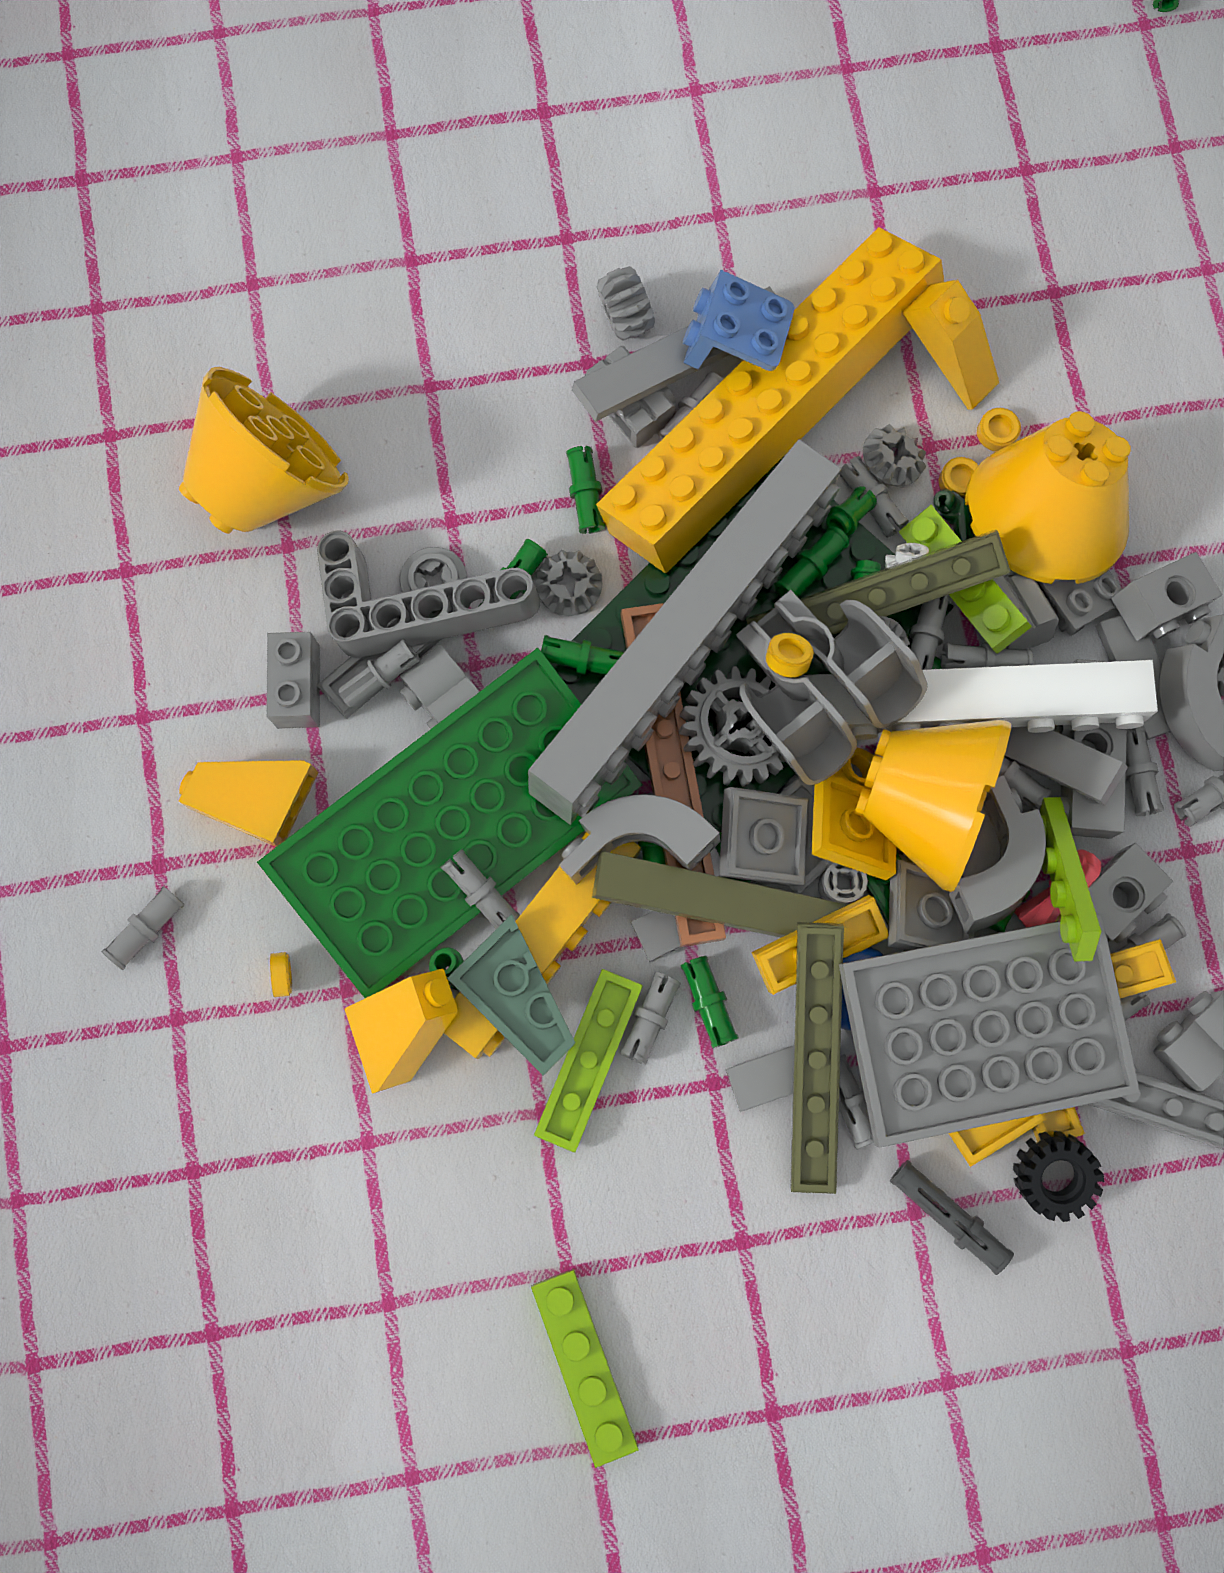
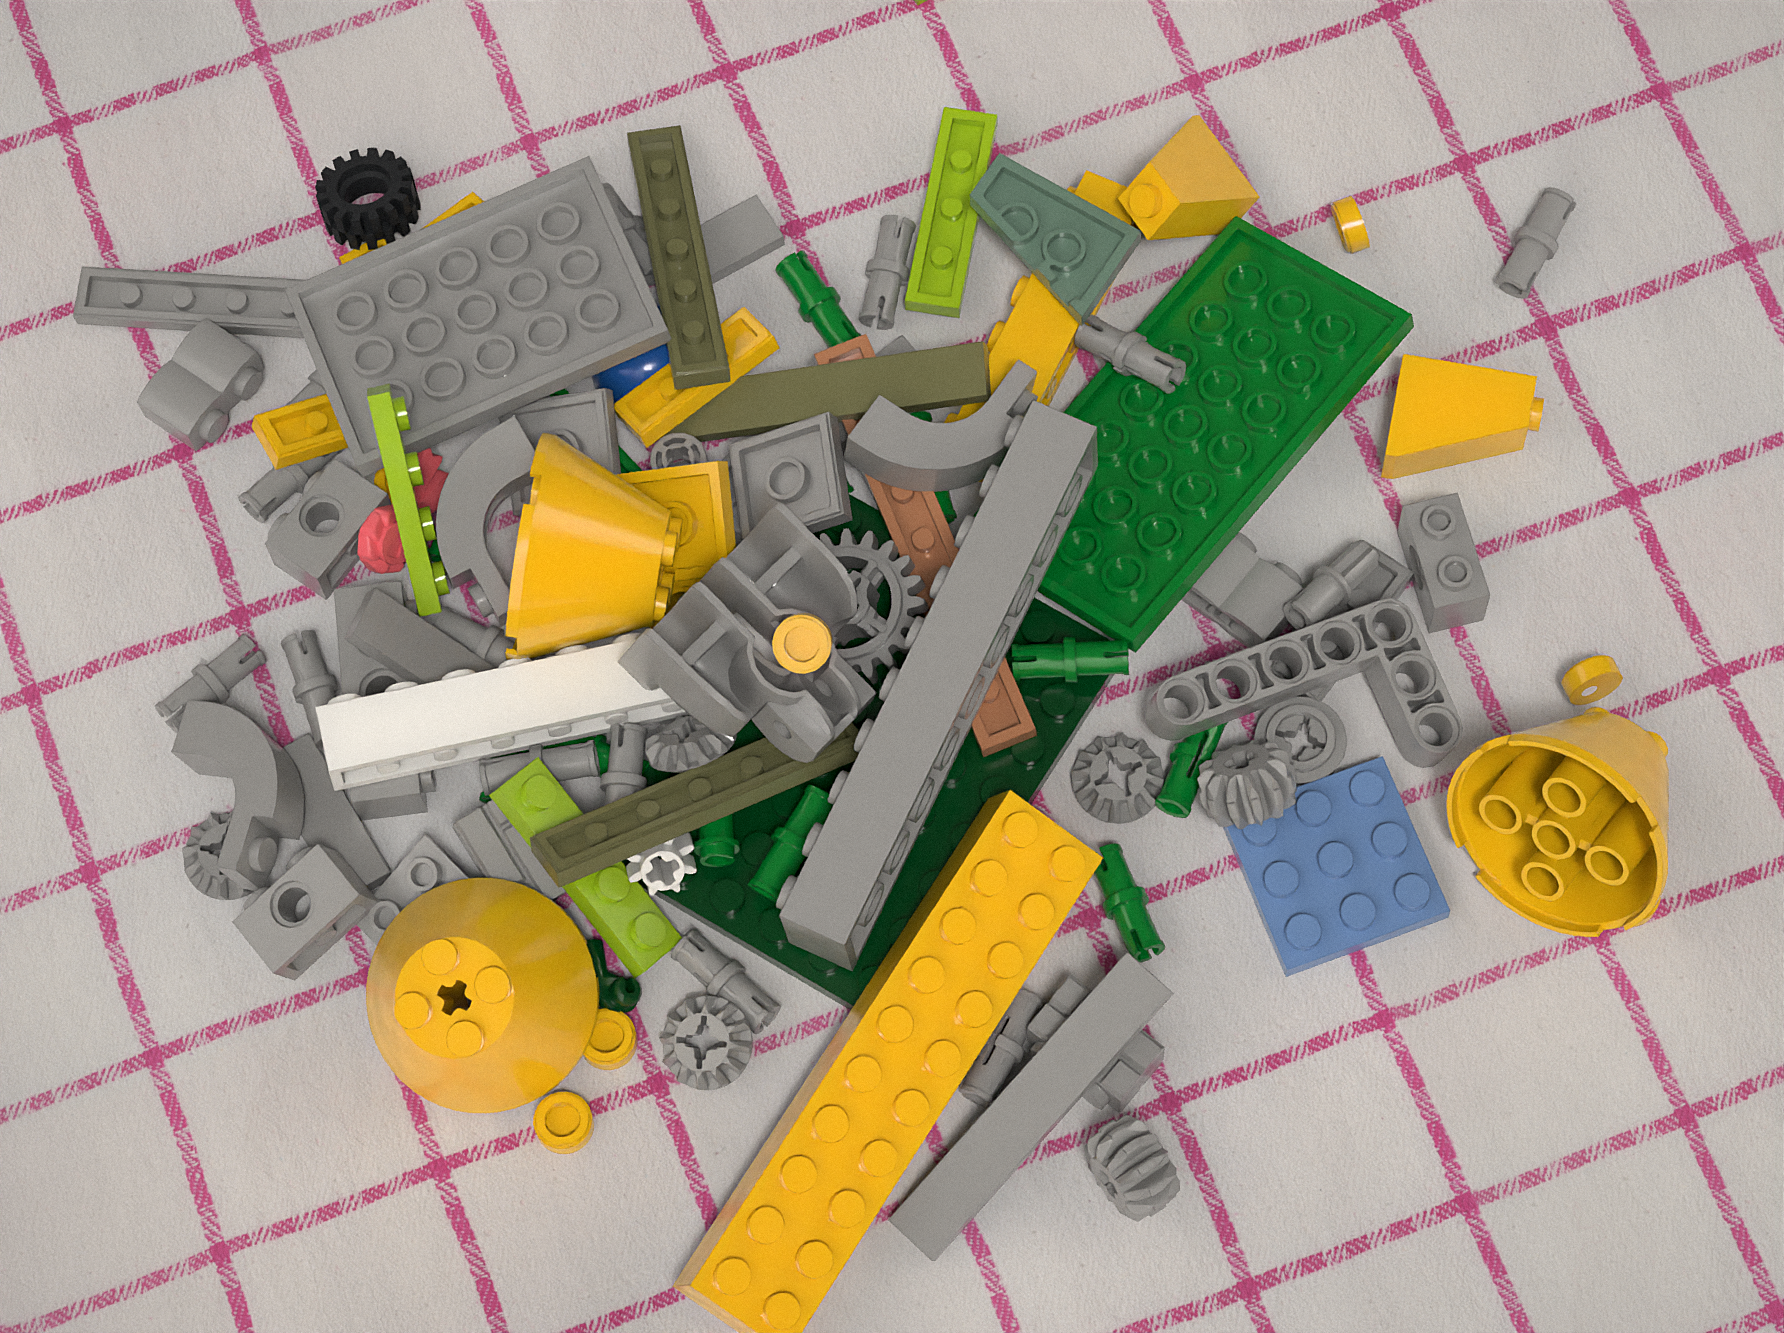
camera: 175 degrees right, 10 degrees down
(215, 574) = (1591, 679): none -> yellow tile
(434, 489) = (1338, 869): none -> medium blue plate
(443, 958) = (1145, 266): green pin -> none
(472, 525) = (1247, 784): none -> light grey gear
(738, 321) = (960, 1132): medium blue bracket -> none
(851, 510) = (754, 925): green pin -> none
(955, 339) = (654, 1198): yellow slope -> none
(992, 1253) = (469, 128): dark grey pin -> none

